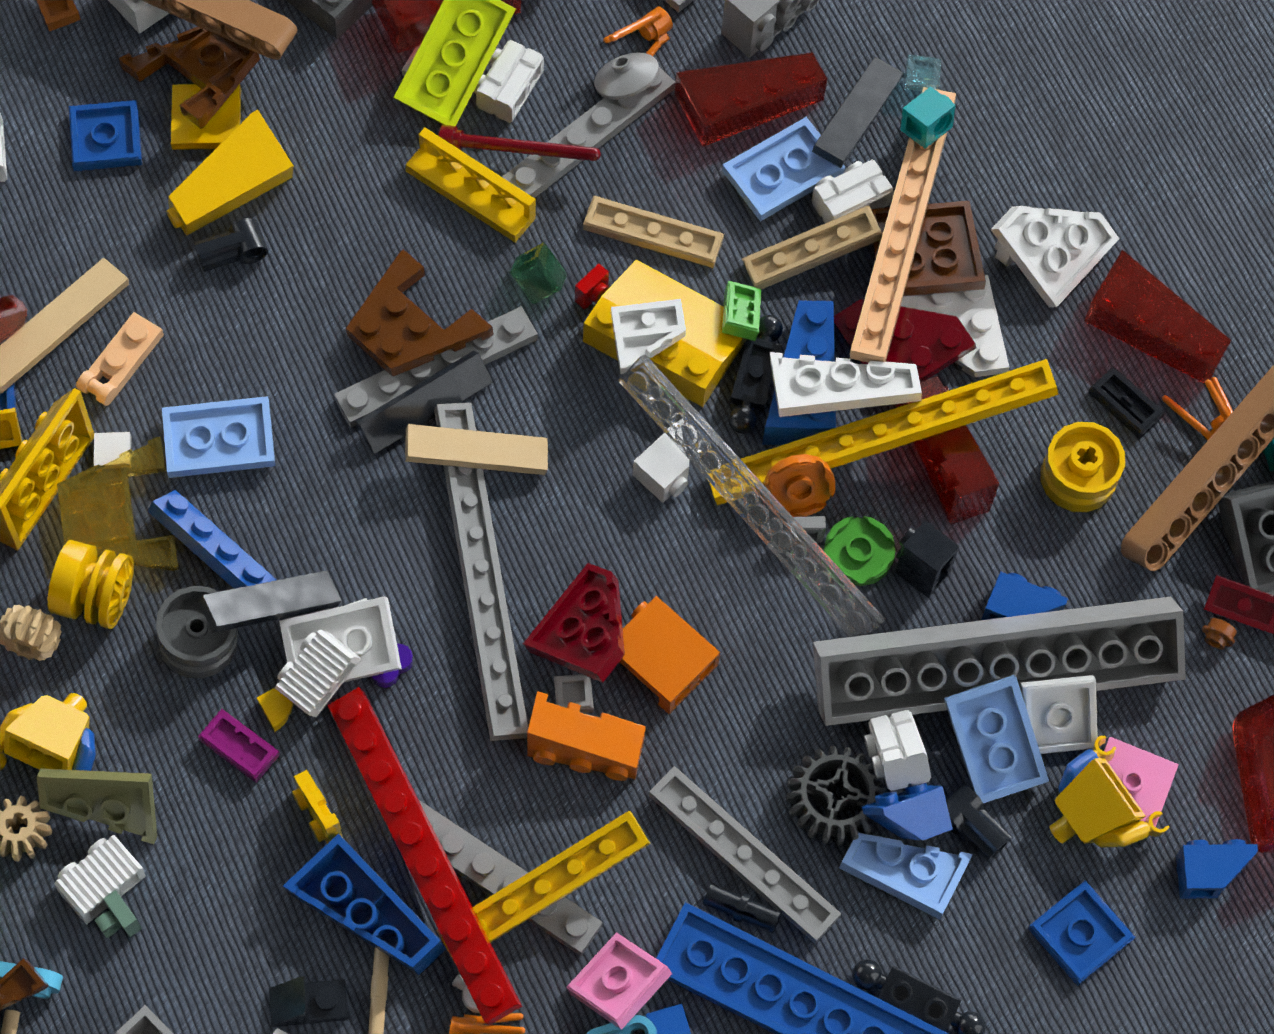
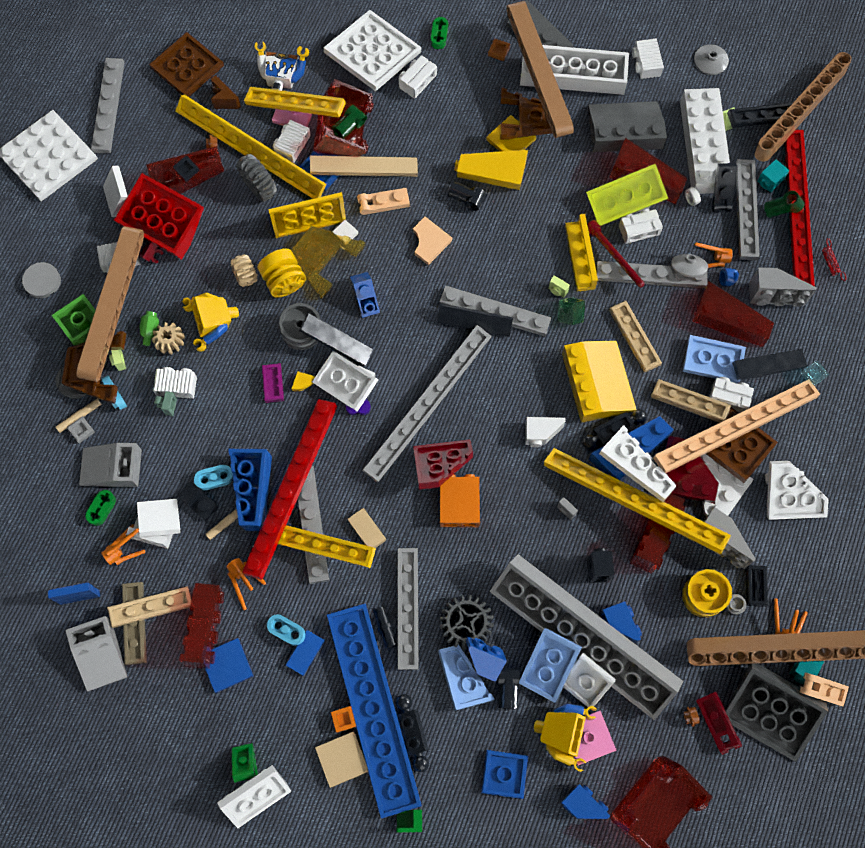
camera: 50 degrees right, 5 degrees up
(105, 135) = (467, 112): blue tile -> none
(110, 798) = (206, 356): olive wing -> none
(208, 541) = (341, 298): plate -> none
(218, 437) = (386, 262): light blue plate -> none
(236, 506) = (365, 294): none -> blue slope
(246, 352) = (431, 240): none -> light nougat tile
(296, 949) = (214, 477): none -> medium azure plate
(308, 796) = (273, 433): yellow wing -> none
(316, 672) = (324, 382): white brick -> none
(399, 332) = (493, 283): reddish brown wing -> none
(476, 449) = (473, 356): tan tile -> none
(488, 256) = (558, 287): none -> yellowish green plate
(574, 689) = (410, 484): light grey tile -> none
(578, 809) = (366, 529): none -> tan tile
(584, 740) = (394, 504): orange wedge -> none
(592, 286) = (586, 334): red plate -> none
(619, 980) = (309, 607): bright pink plate -> none
(646, 329) = (582, 370): white wing -> none
(689, 47) = (728, 276): none -> blue tile
(741, 310) = (634, 399): bright green plate -> none
(750, 499) = (555, 476): clear plate -> none
(801, 484) = (581, 488): orange tile -> none
(861, 549) = (581, 537): bright green tile -> none
(897, 750) = (505, 630): white brick -> none
(928, 117) = (794, 392): teal brick -> none
(1072, 374) = (736, 548): none -> light grey slope
(1132, 445) = (737, 604): none -> light grey plate
(1156, 320) = (805, 564): clear red wedge -> none

